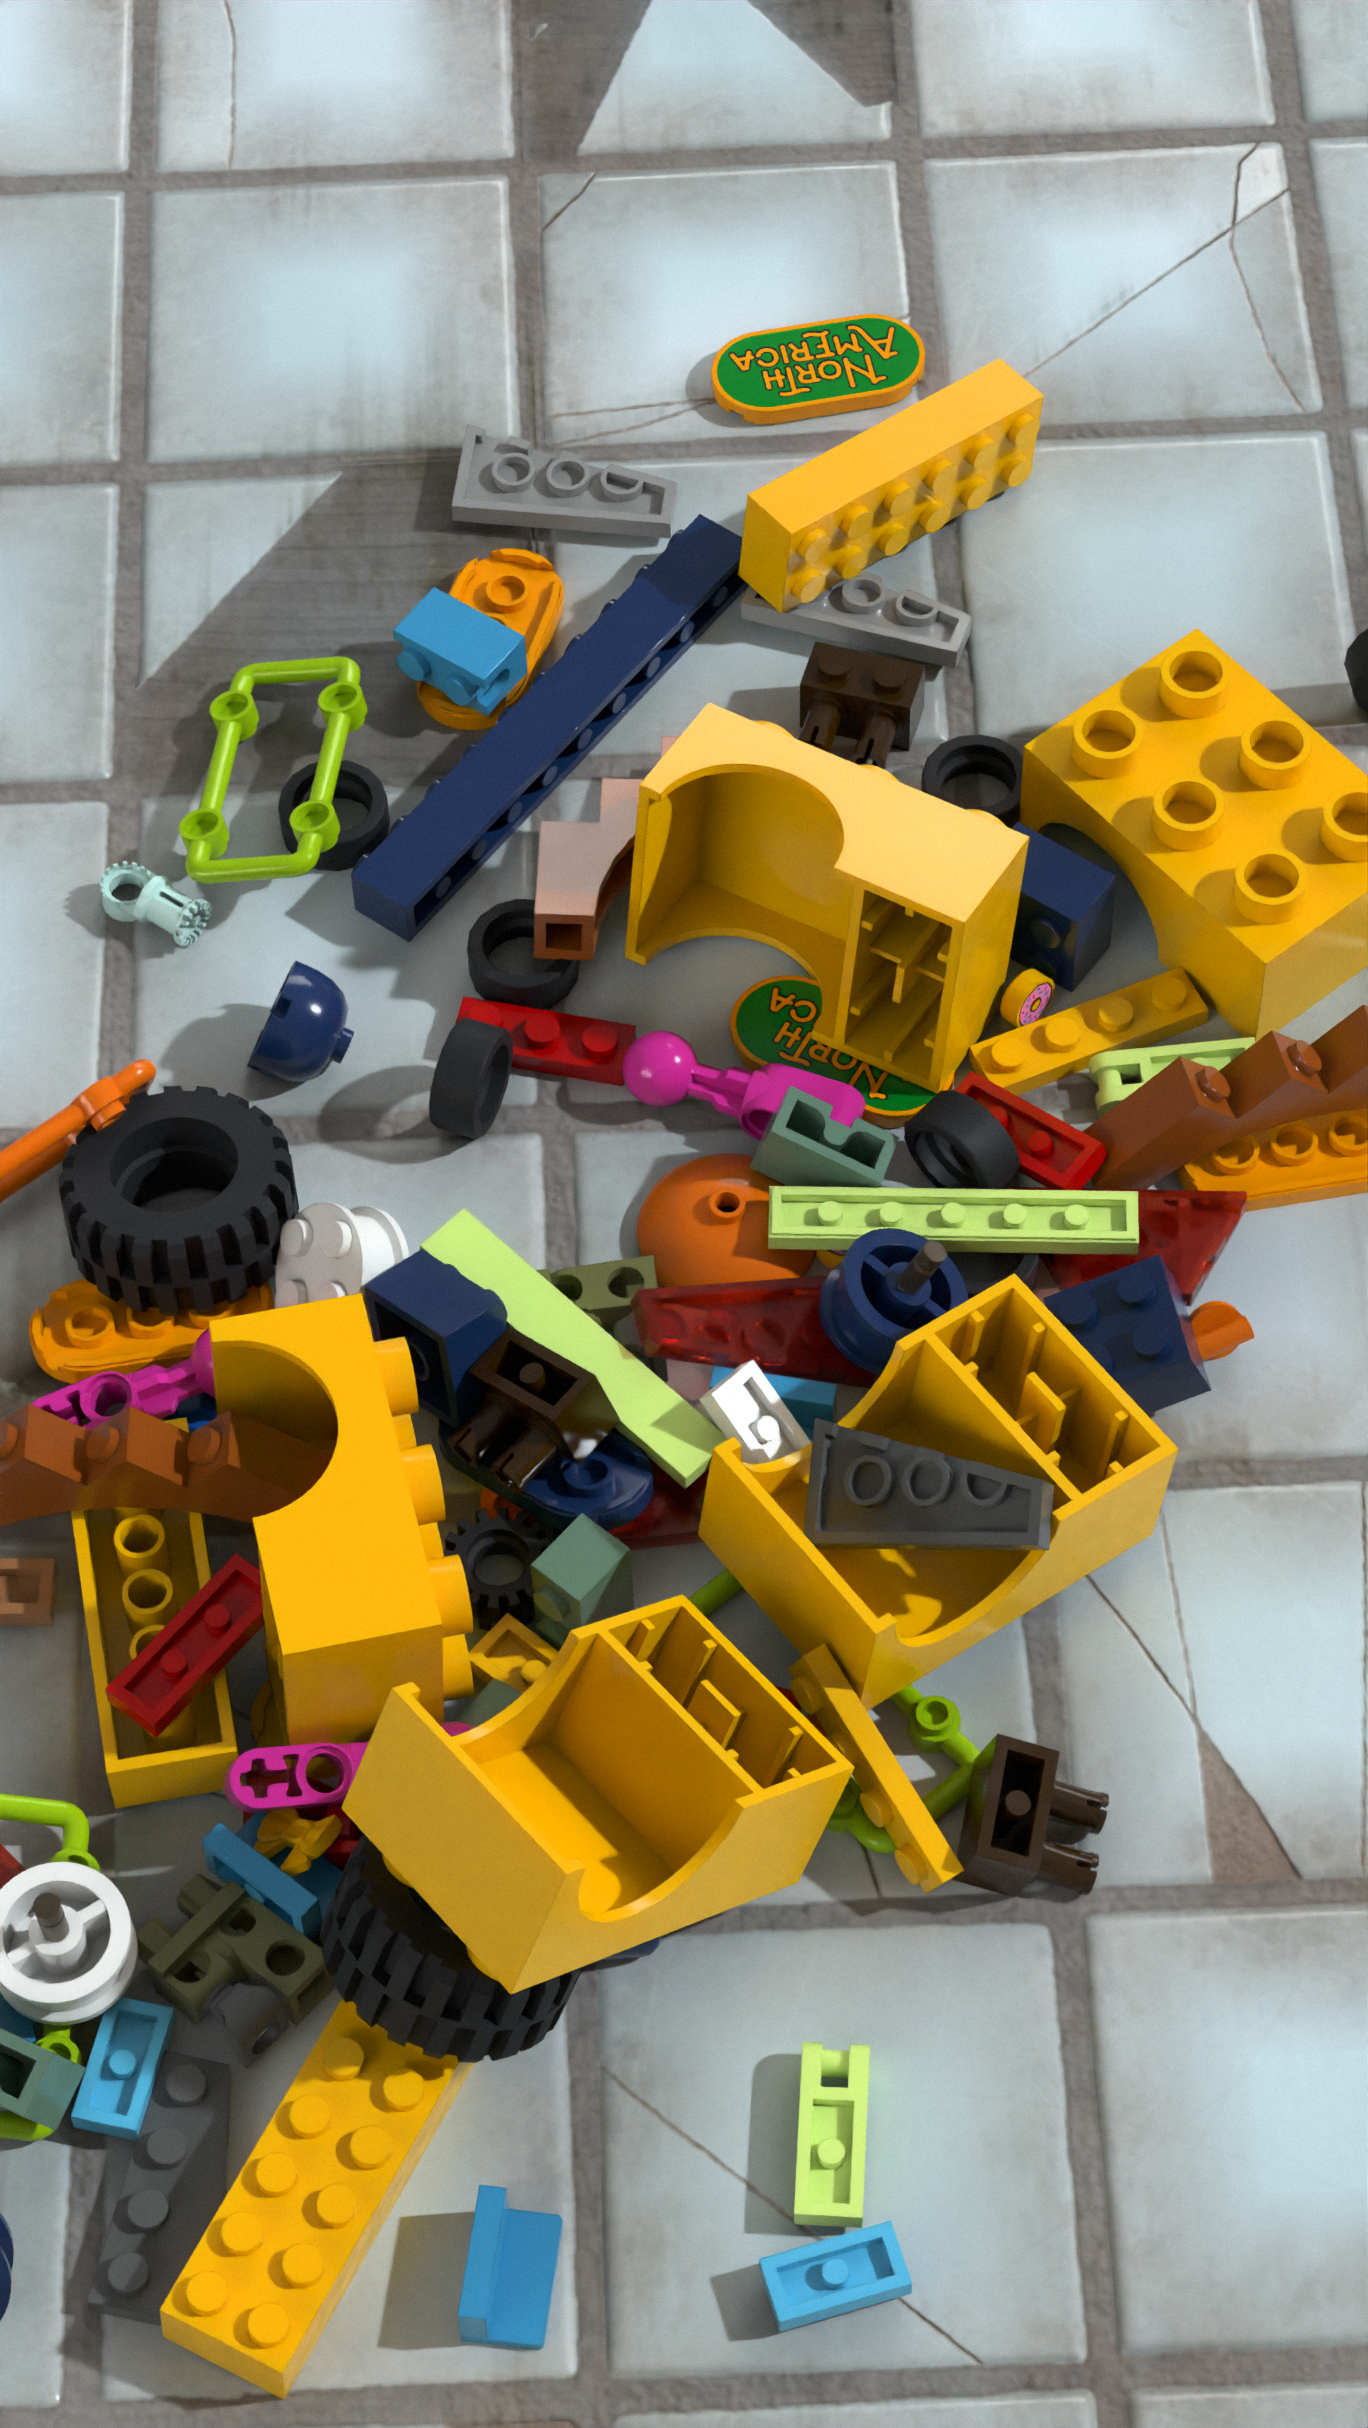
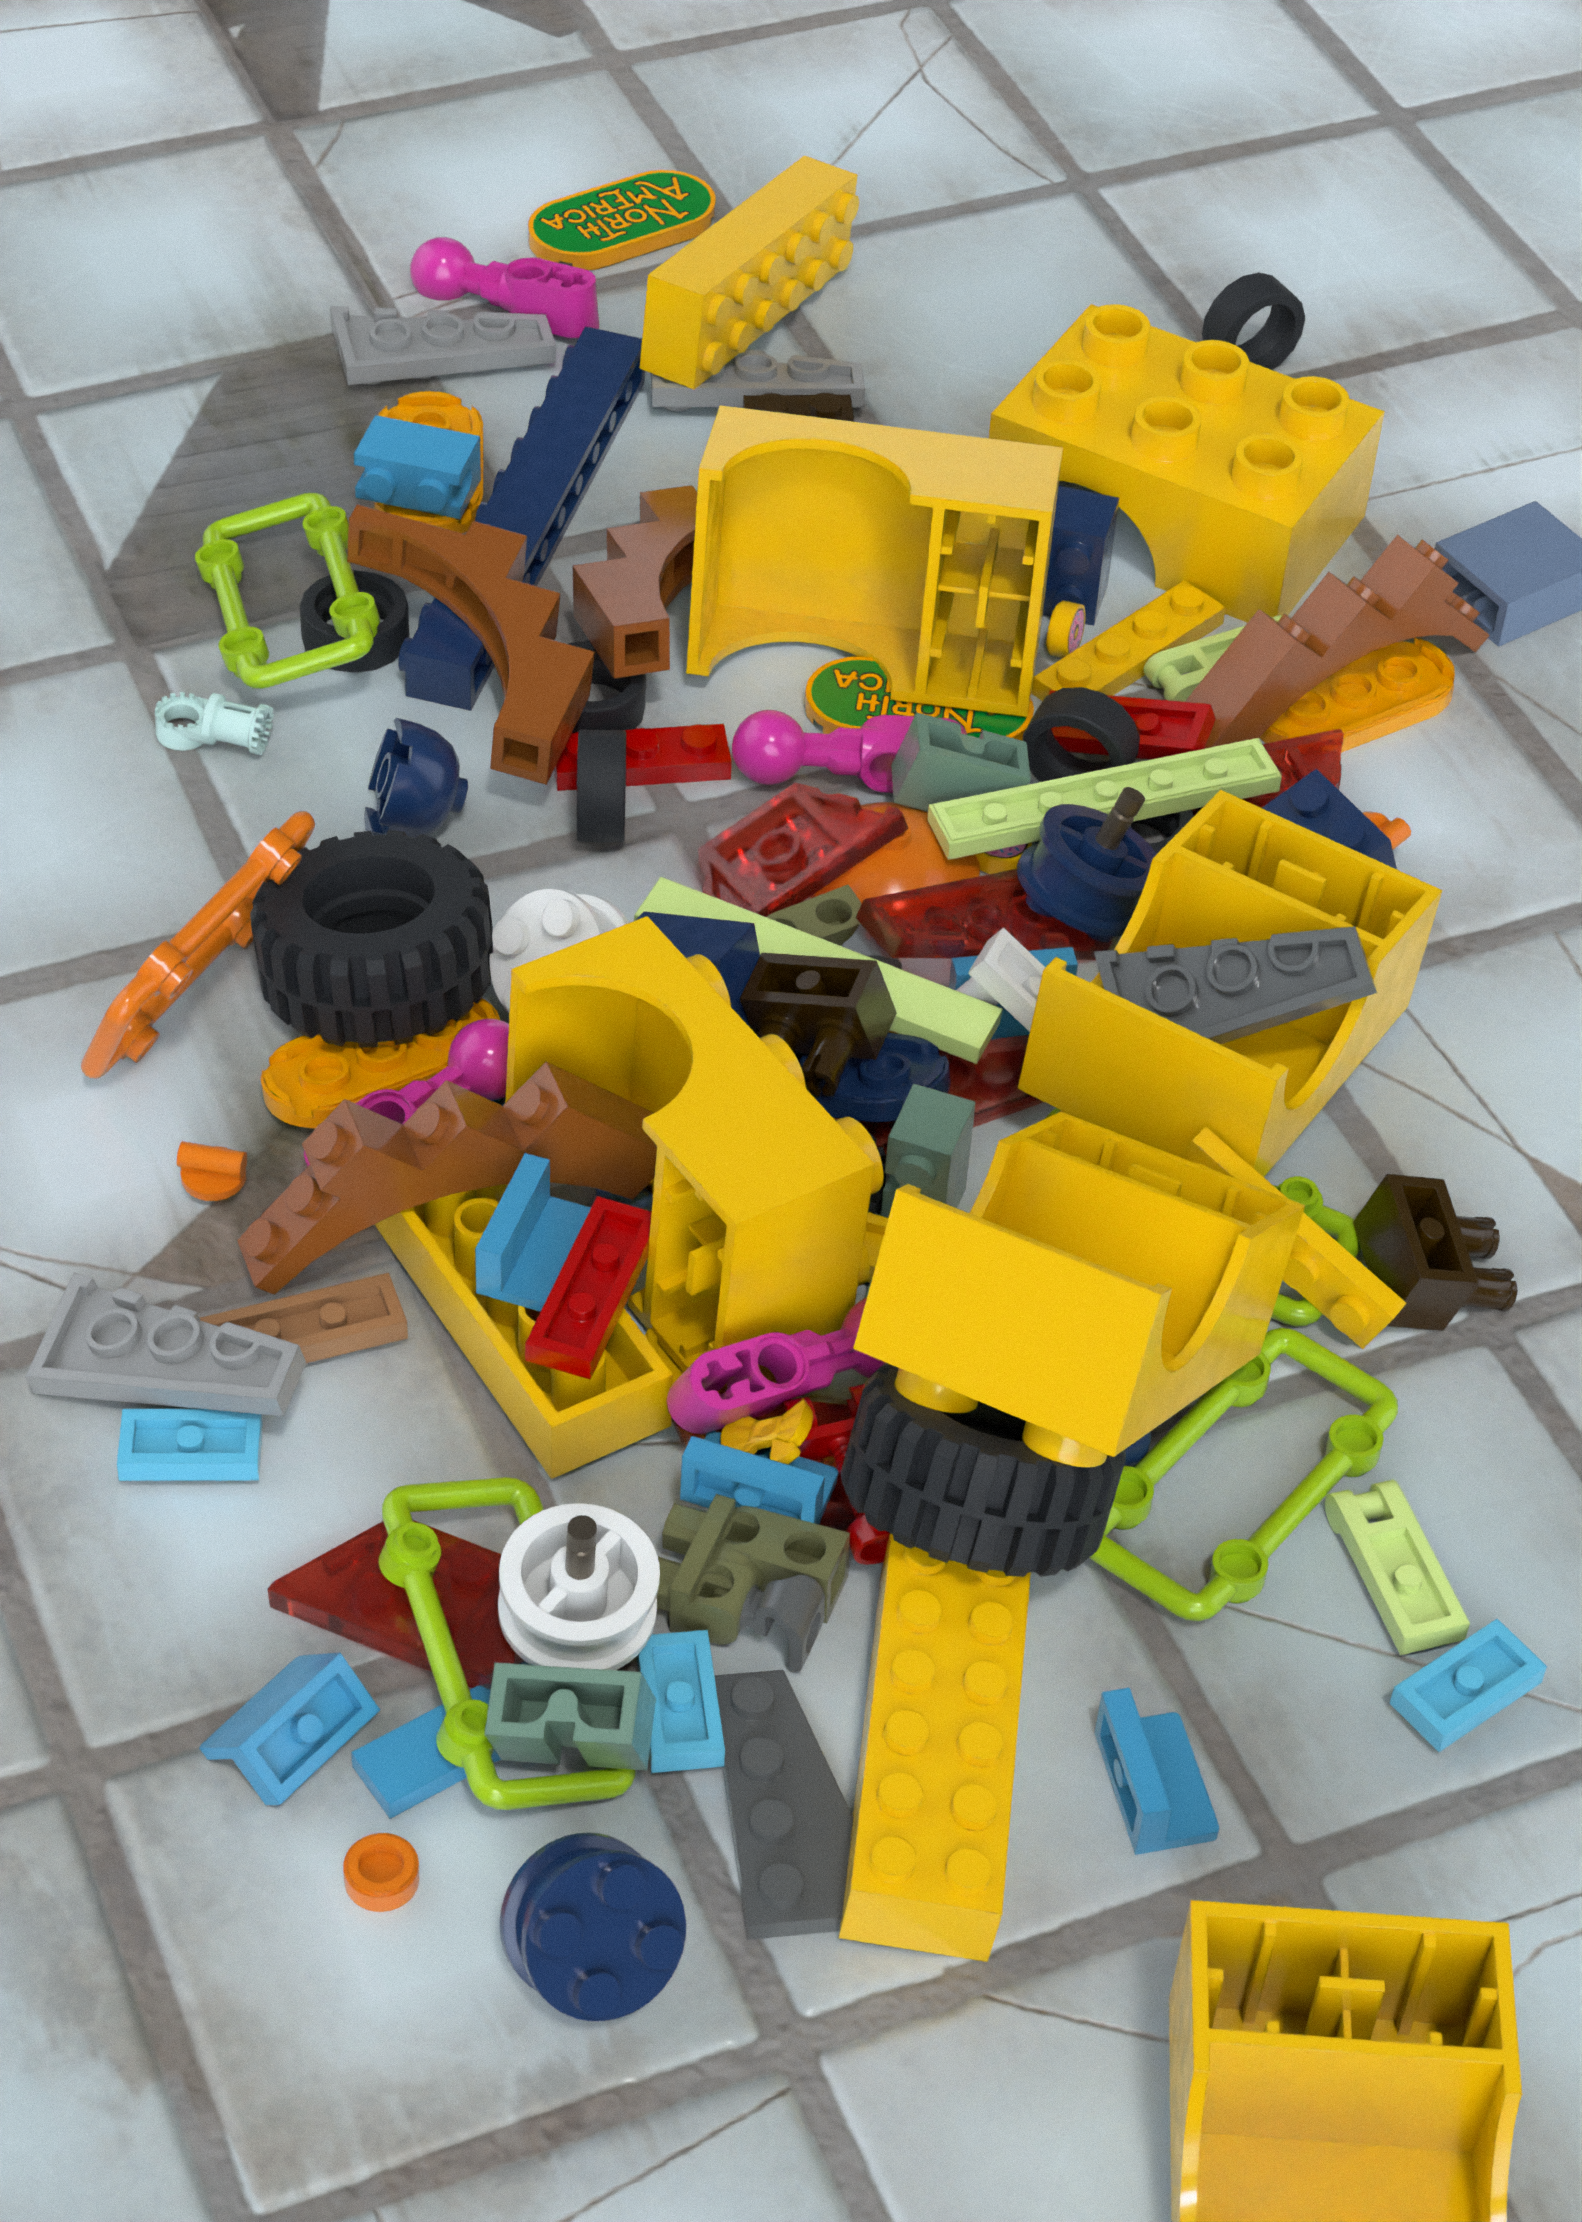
camera: 25 degrees left, 10 degrees down
(160, 1572) = (527, 1238): none -> dark azure panel
(458, 945) = (516, 622): none -> dark orange arch
(617, 1200) = (793, 848): none -> clear red wing
(674, 442) = (529, 285): none -> dark pink beam
(684, 2088) = (1240, 1564): none -> lime bar

